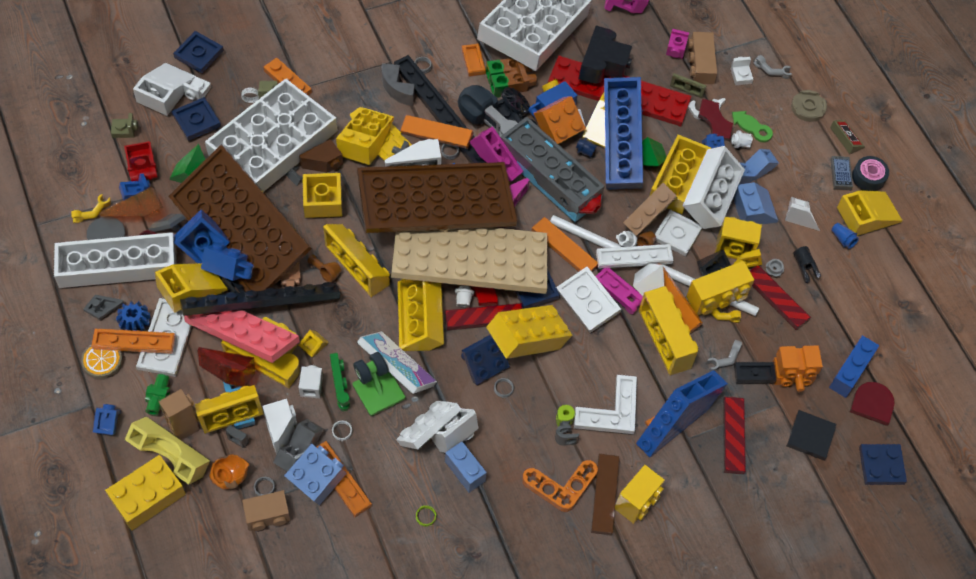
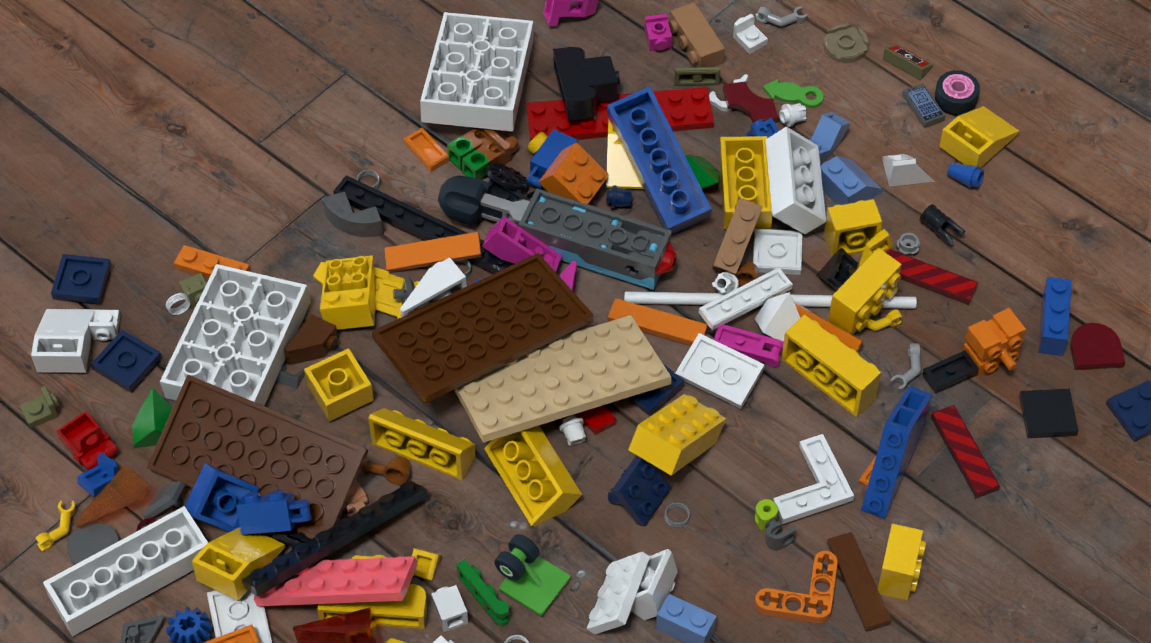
camera: 20 degrees left, 5 degrees down
(398, 362) = (548, 540): tile -> none
(475, 316) = (602, 446): tile -> none

